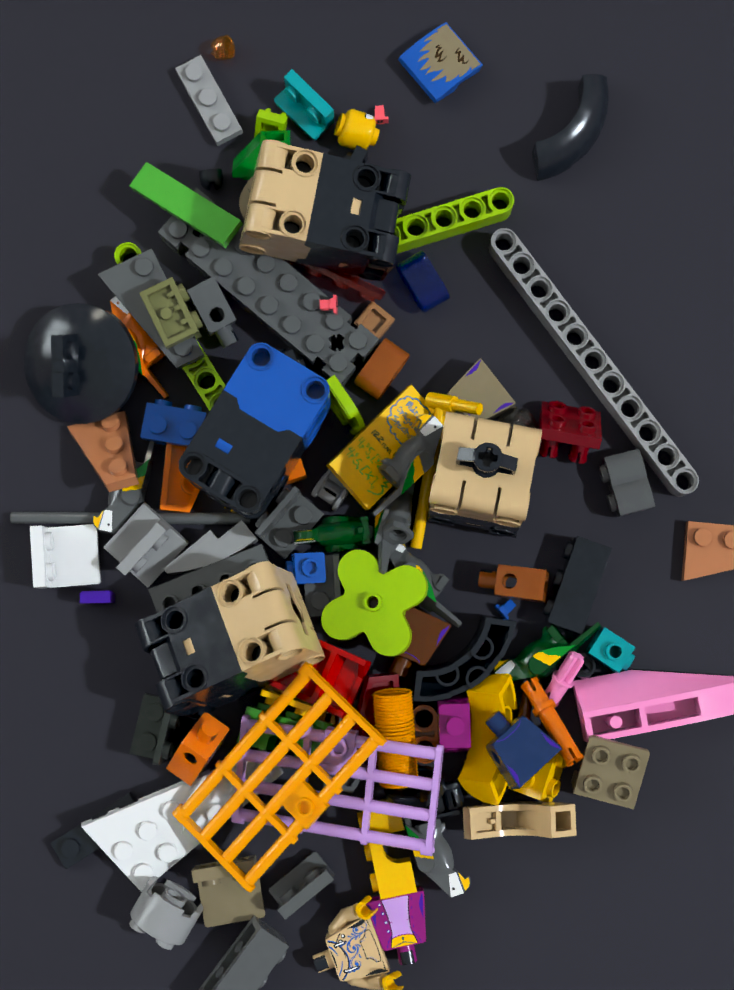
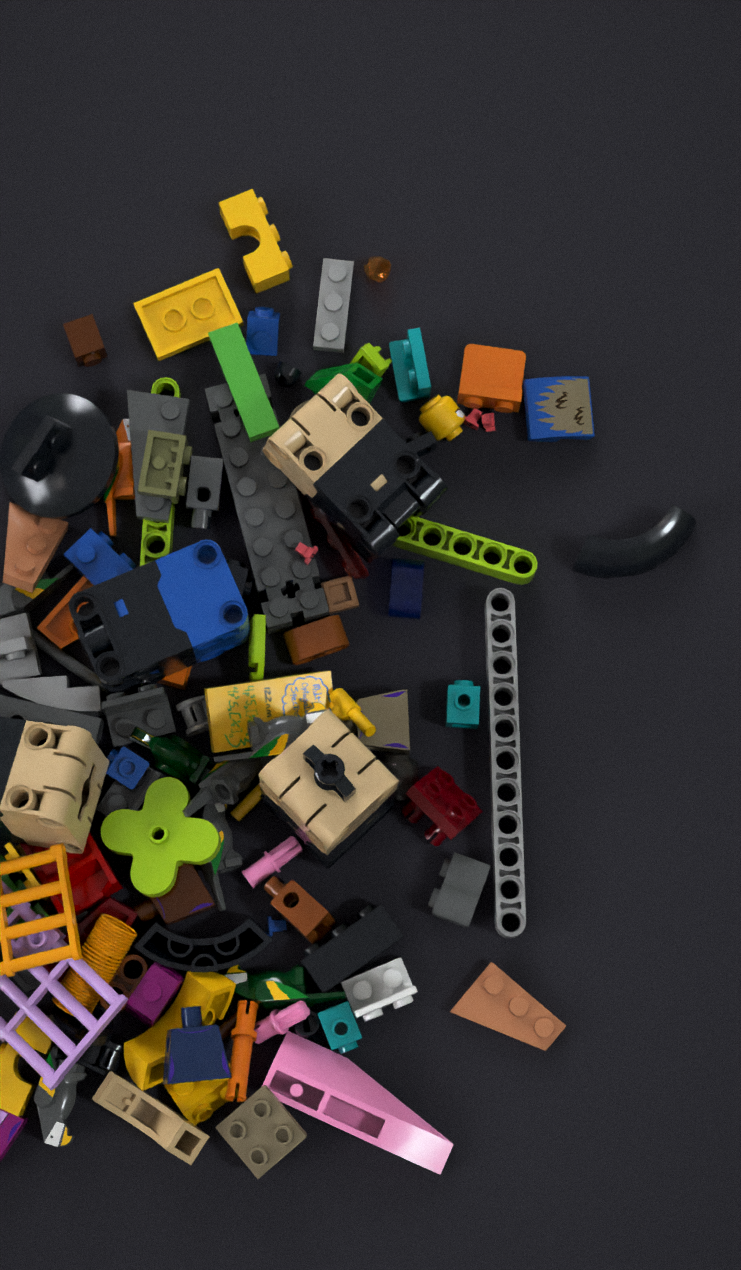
camera: 30 degrees right, 5 degrees down
(35, 259) = (85, 341): none -> reddish brown brick
(91, 76) = (246, 217): none -> yellow arch
(100, 184) = (187, 313): none -> yellow plate
(169, 156) = (263, 331): none -> blue bracket
(373, 73) = (491, 378): none -> orange bracket
(393, 110) = (488, 422): none -> coral piece
(469, 561) = (272, 861): none -> bright pink axle
(529, 341) = (462, 705): none -> teal brick
(622, 601) = (378, 989): none -> white bracket

